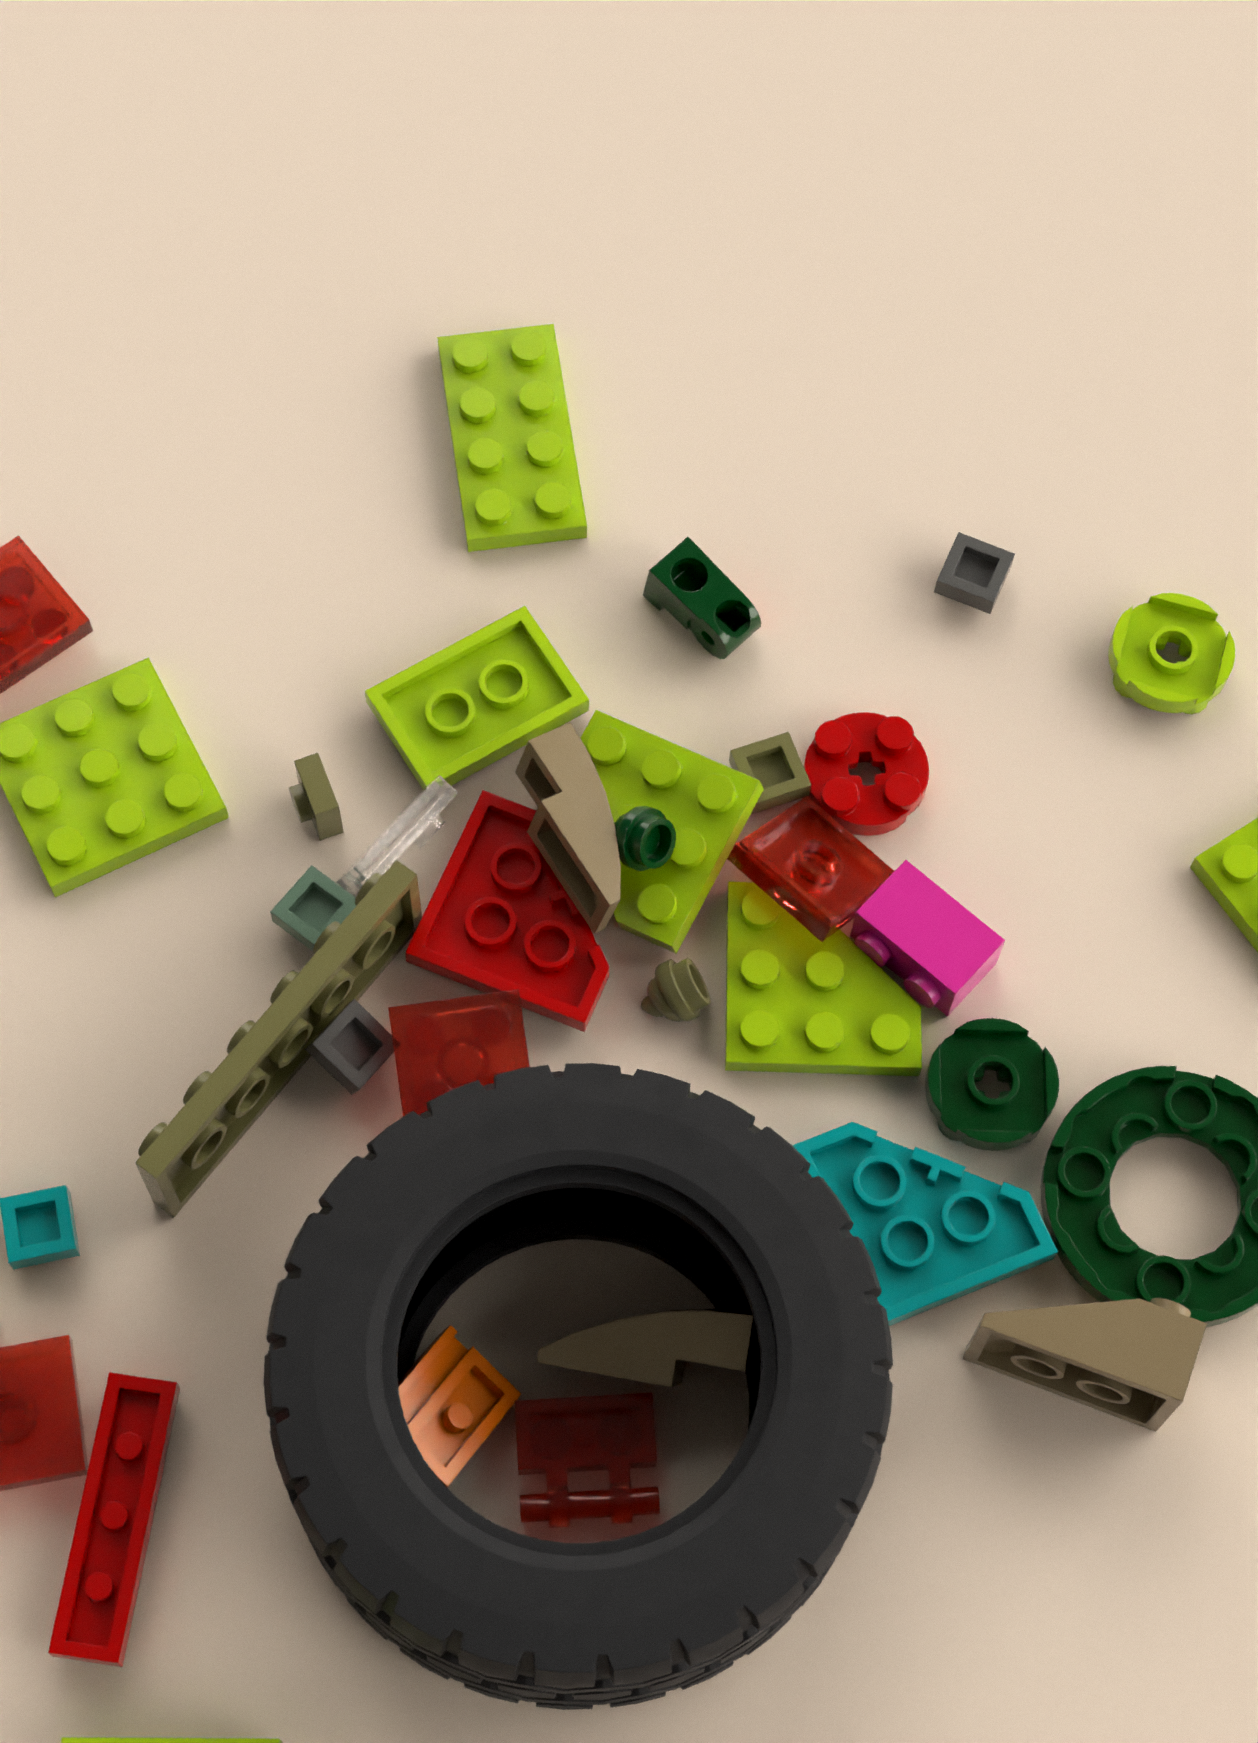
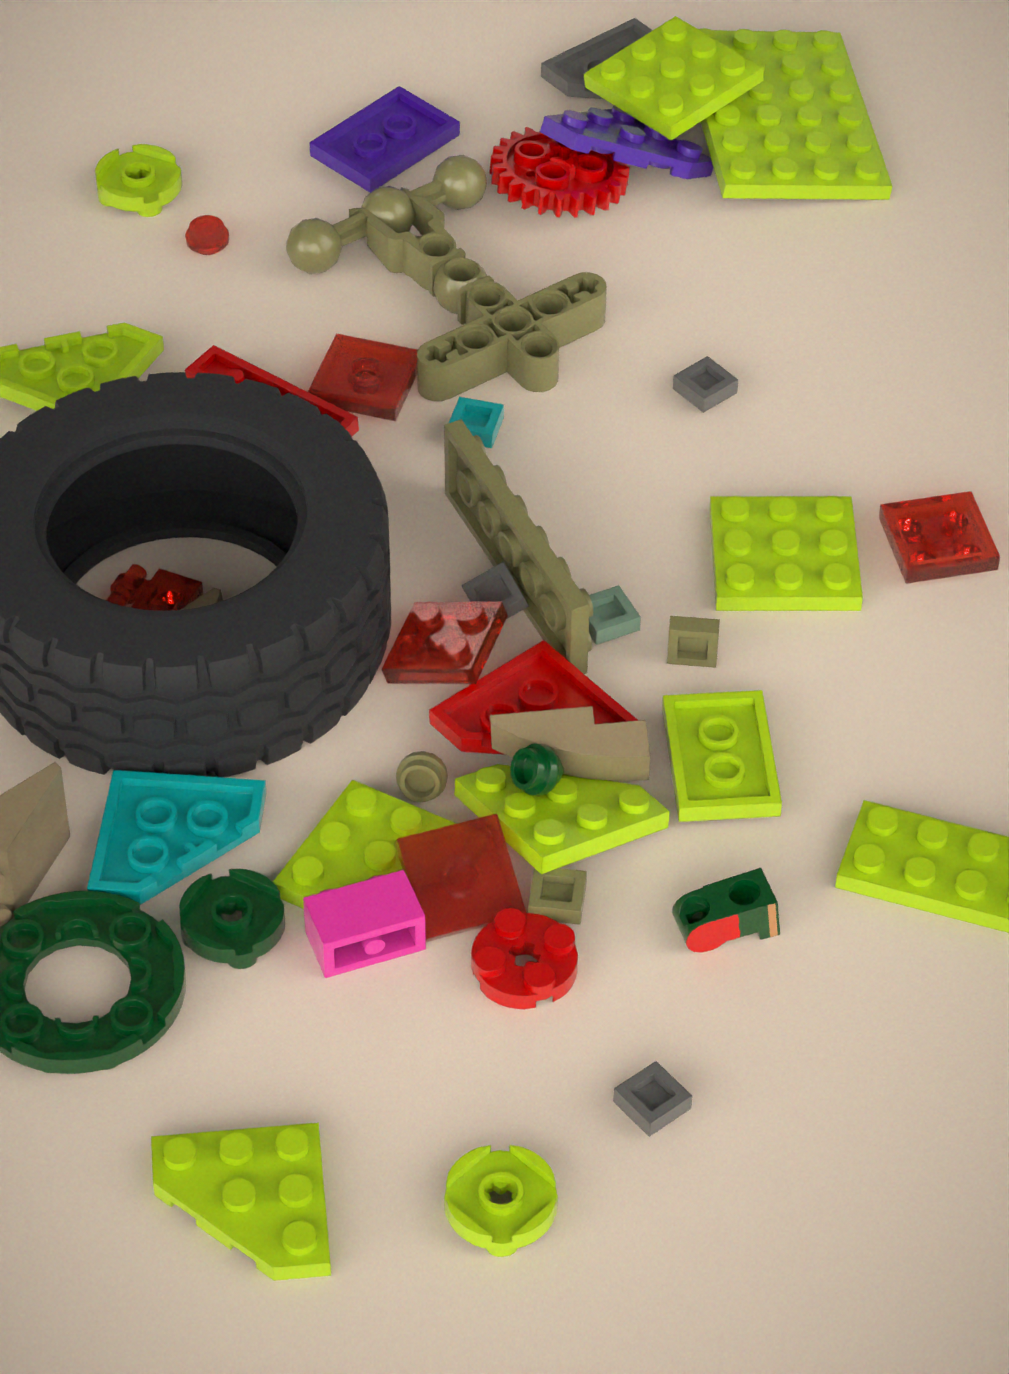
camera: 120 degrees right, 20 degrees down
(414, 824) = (623, 653): clear plate -> none
(452, 1403) = (219, 540): orange plate -> none

